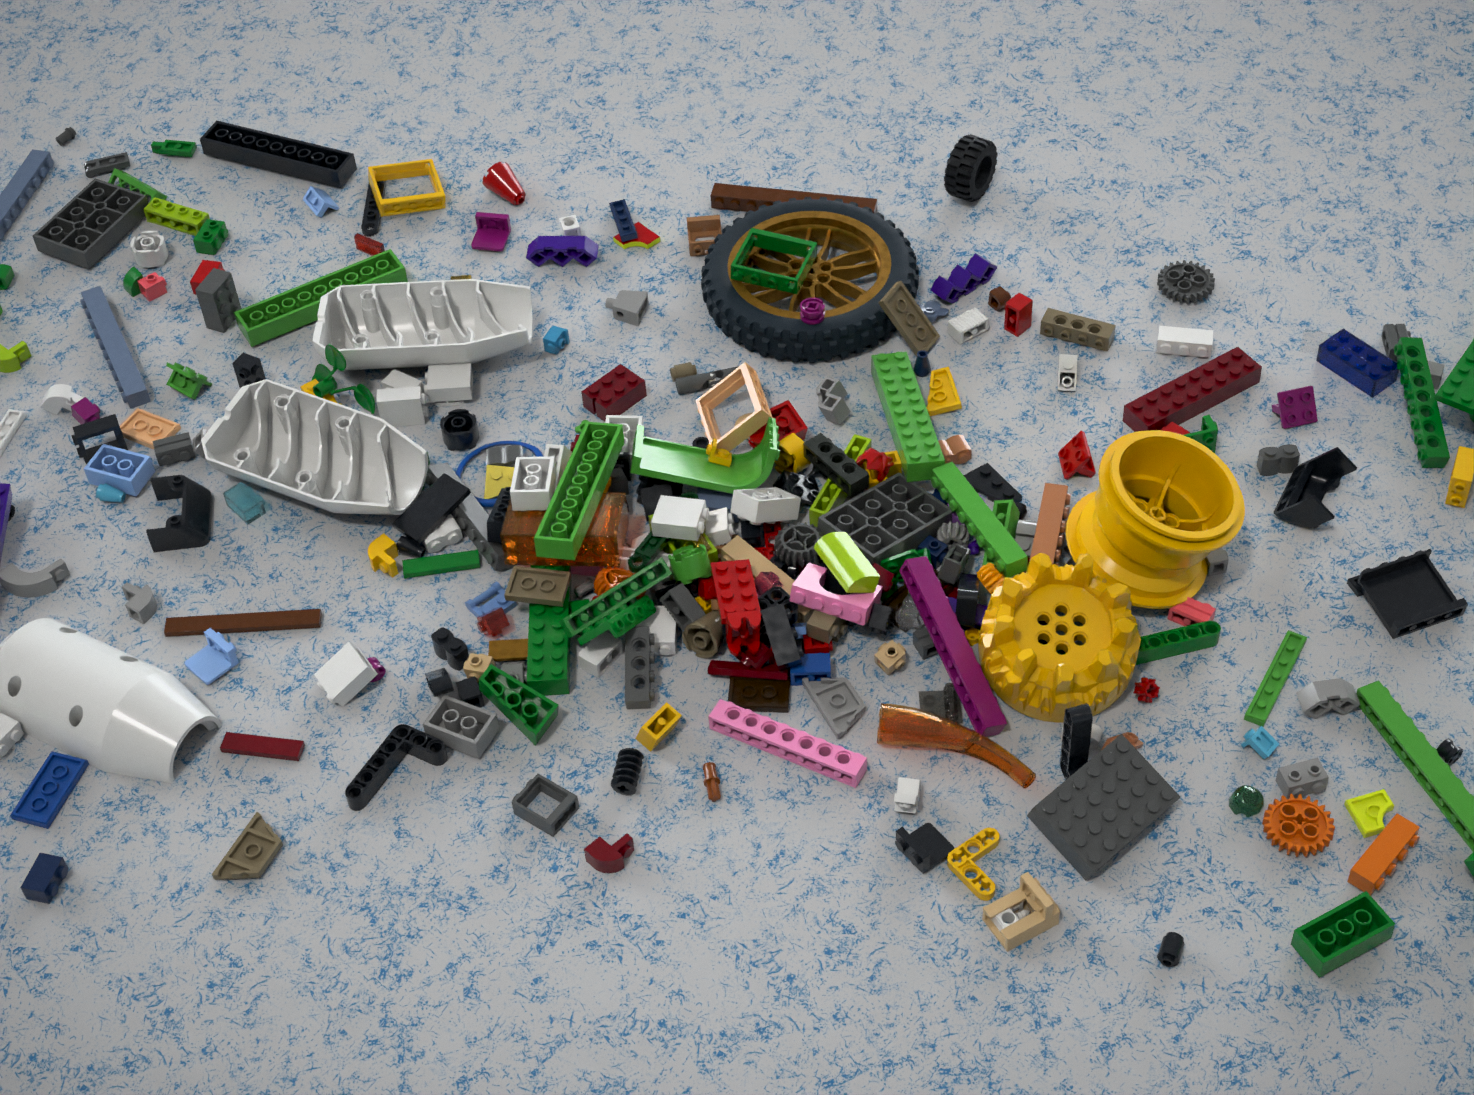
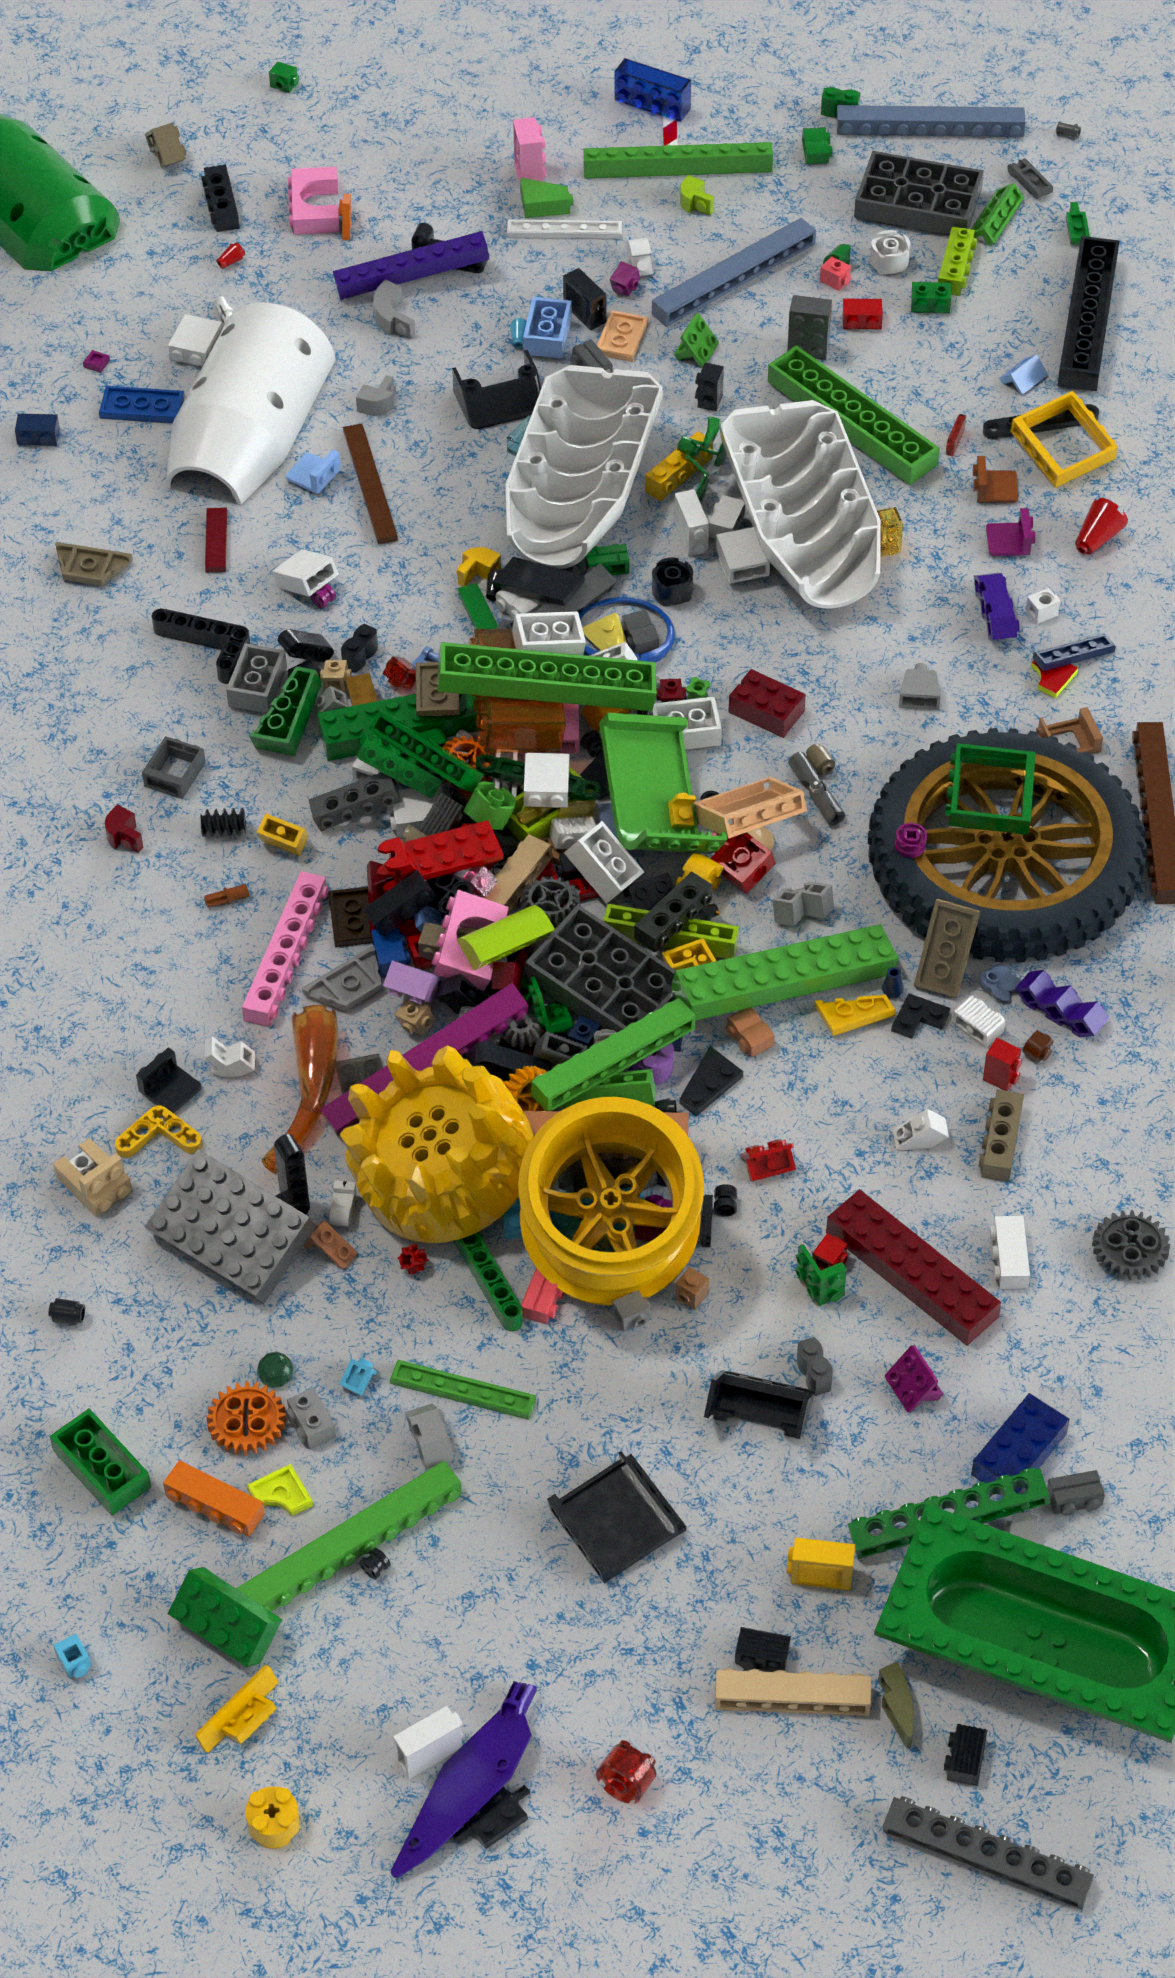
camera: 75 degrees right, 5 degrees up
(430, 235) = (994, 484): none -> dark orange bracket
(555, 339) = (842, 633): dark azure brick -> none
(864, 645) = (411, 982): none -> lavender slope
(876, 461) = (679, 945): red helmet -> none
(950, 356) = (917, 1011): none -> black plate

